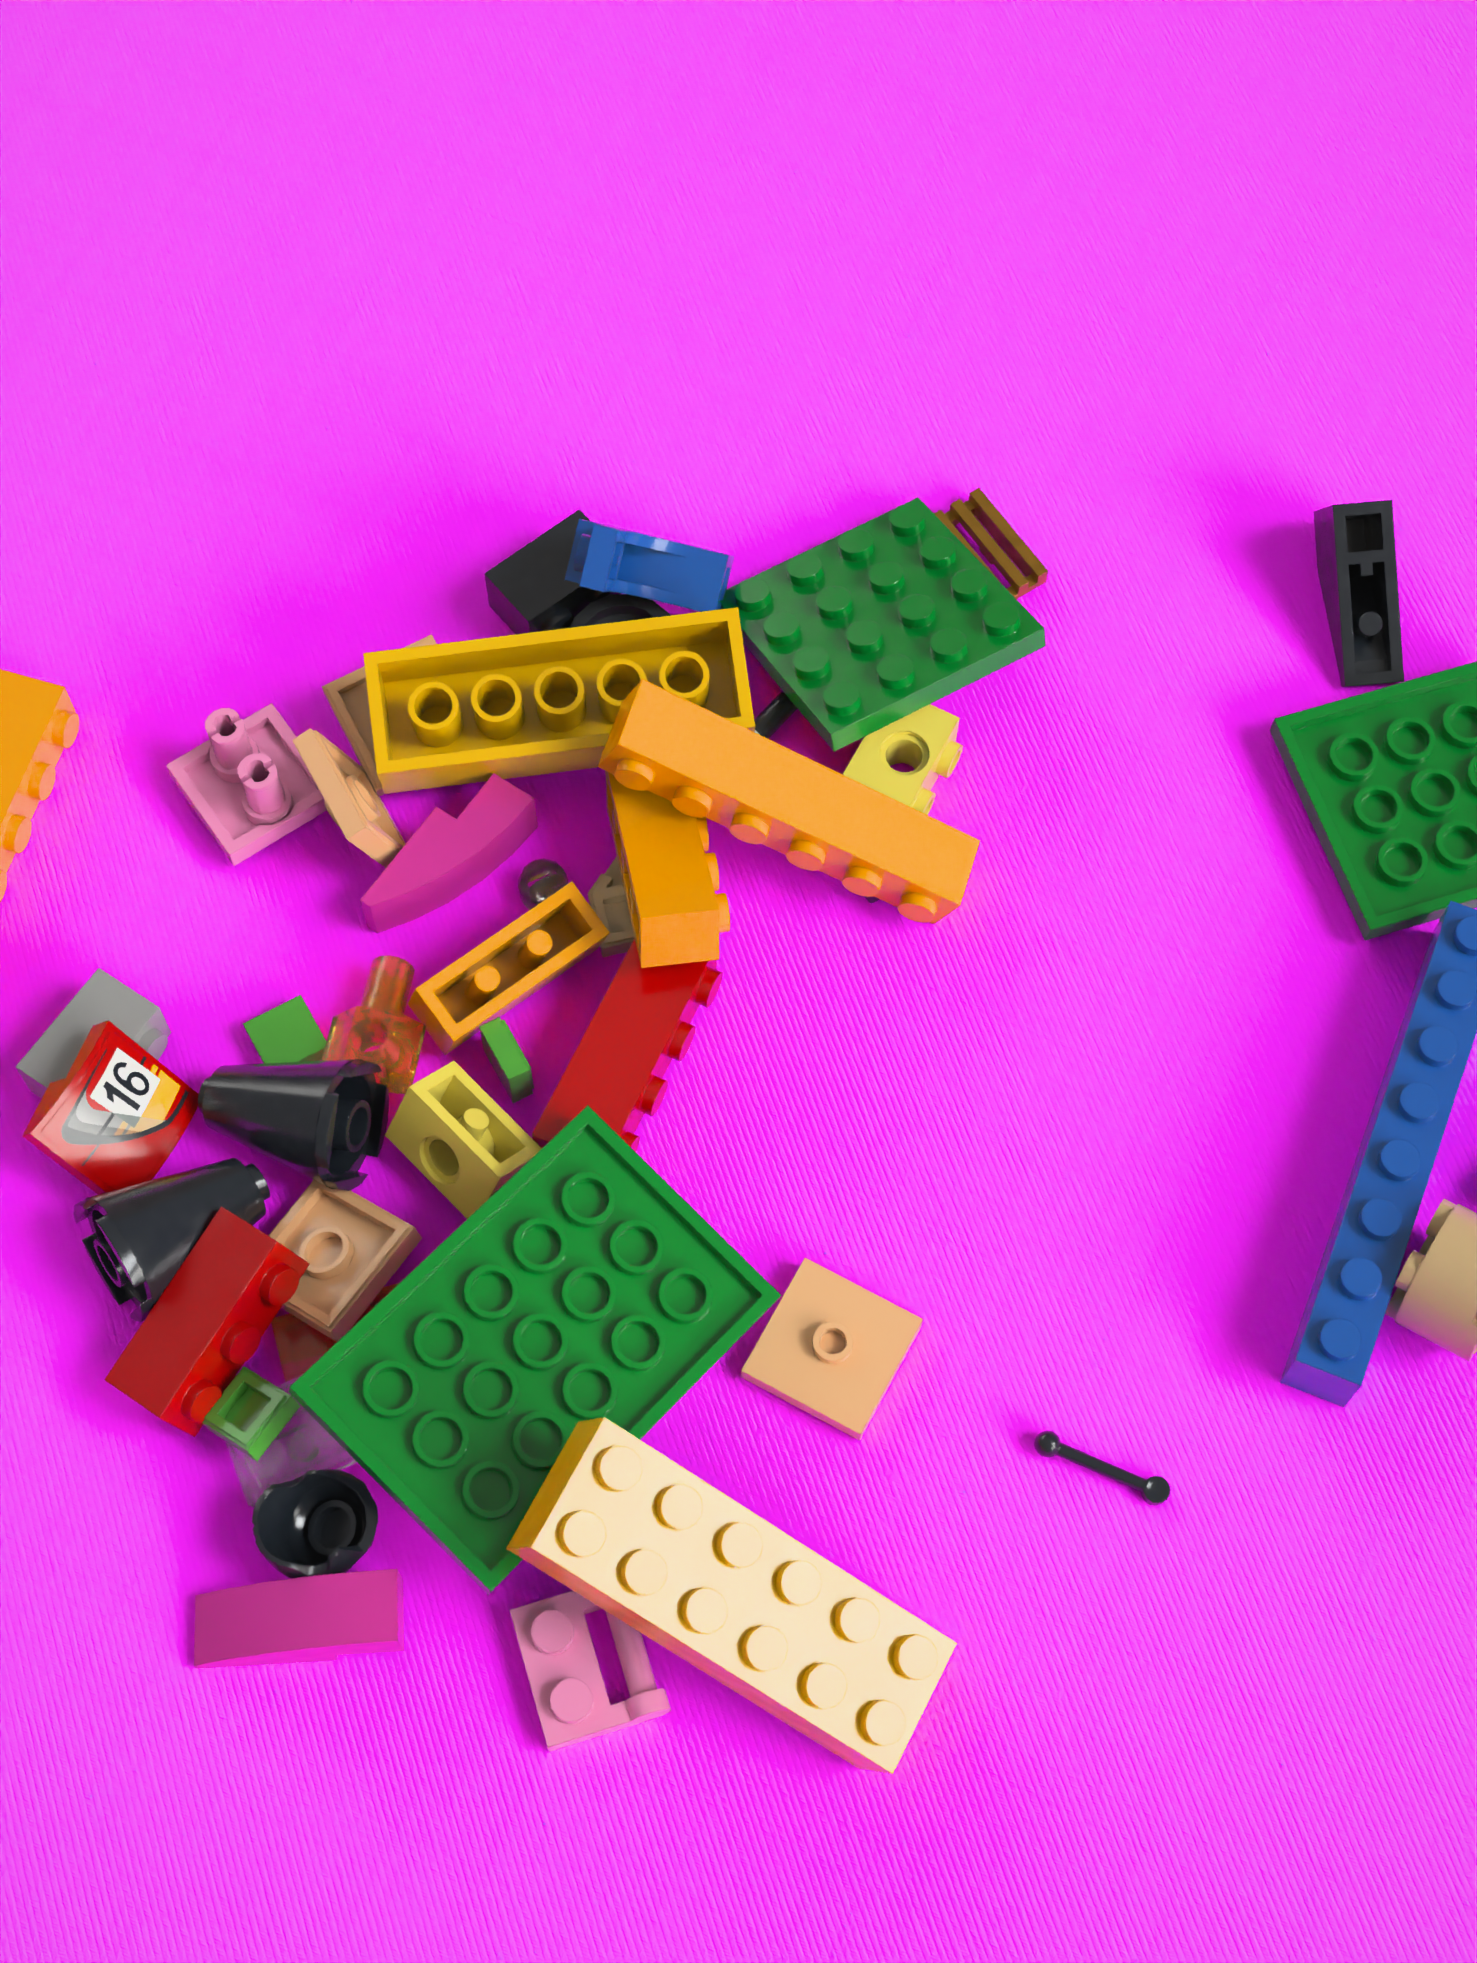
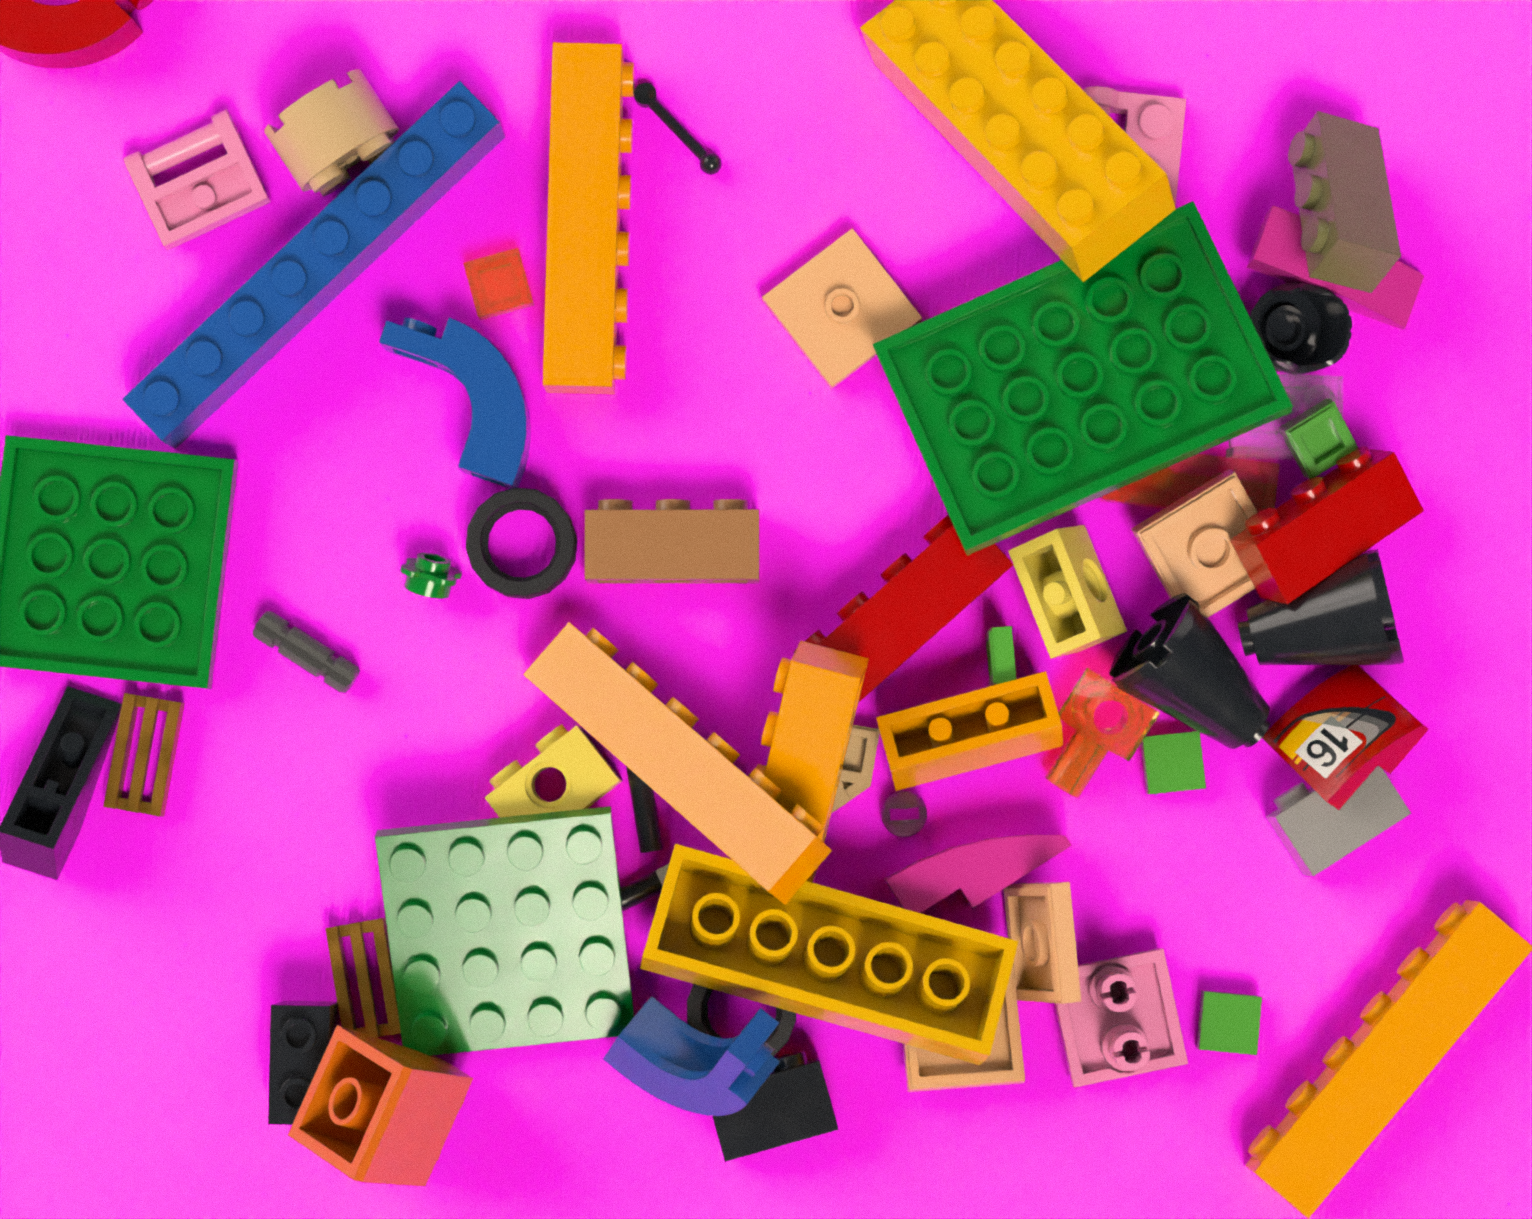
camera: 155 degrees left, 20 degrees up
(138, 826) = (1229, 1022): none -> bright green tile
(316, 1675) = (1344, 202): none -> brick
(893, 1030) = (672, 543): none -> medium nougat brick
(916, 418) = (379, 1109): none -> slope
(1006, 453) = (297, 1044): none -> black brick
(1062, 932) = (492, 511): none -> black tyre
(1119, 906) = (430, 575): none -> green plate
(1152, 1321) = (585, 218): none -> light orange brick
(1158, 1106) = (500, 415): none -> blue arch
(1199, 796) = (306, 651): none -> dark grey axle
(1203, 1220) = (498, 284): none -> tile
(1319, 644) = (122, 748): none -> pearl gold tile

